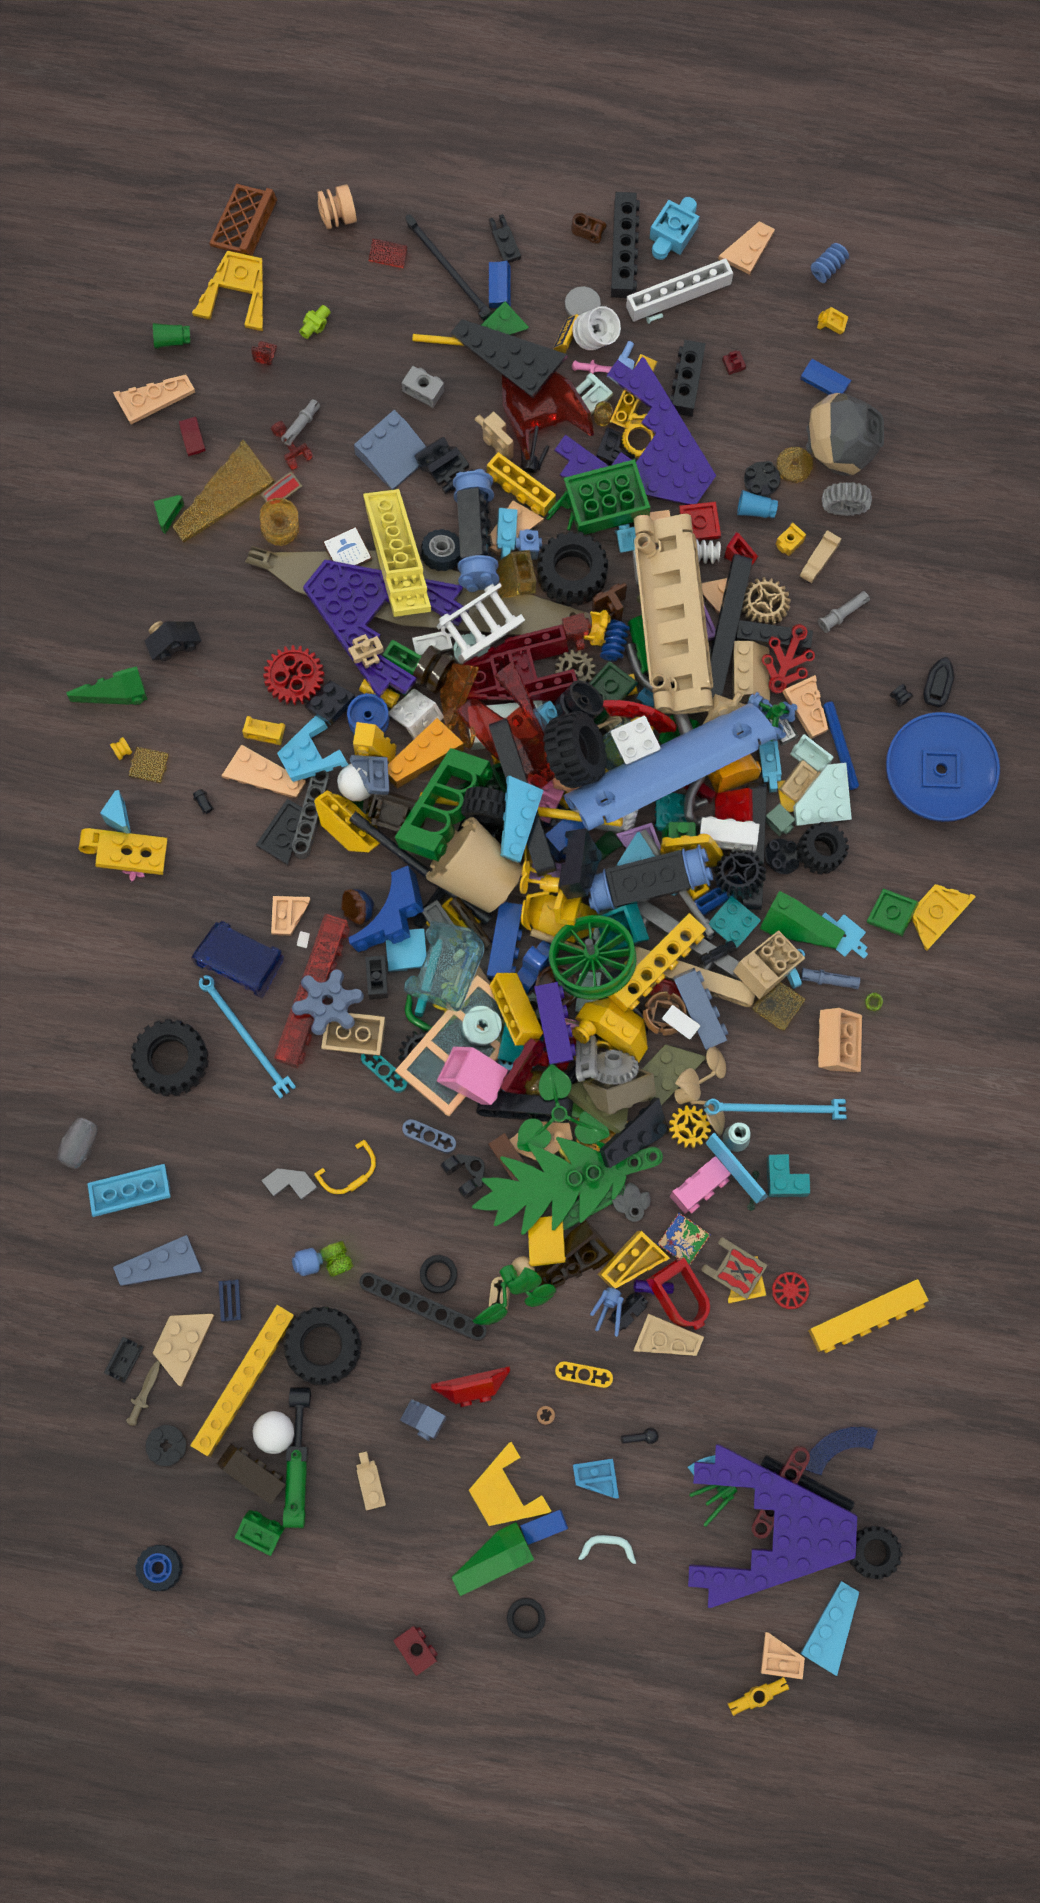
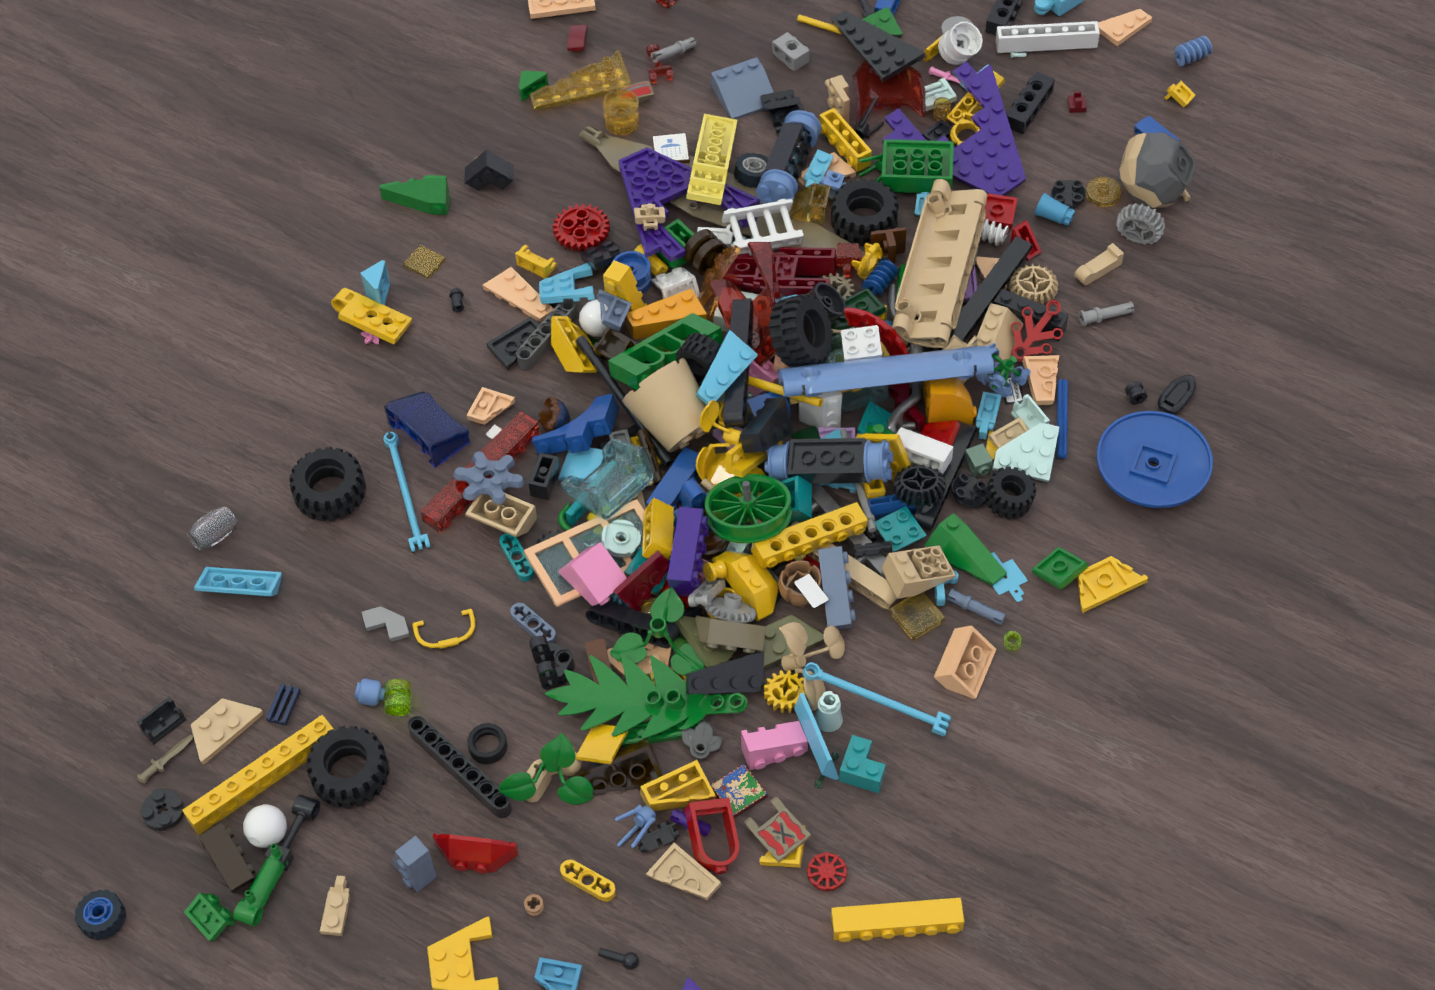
camera: 25 degrees right, 20 degrees down
(121, 748) = (406, 241): yellow wheel -> none
(166, 1261) = (242, 652): sand blue wing -> none
(789, 546) = (1076, 245): yellow brick -> none

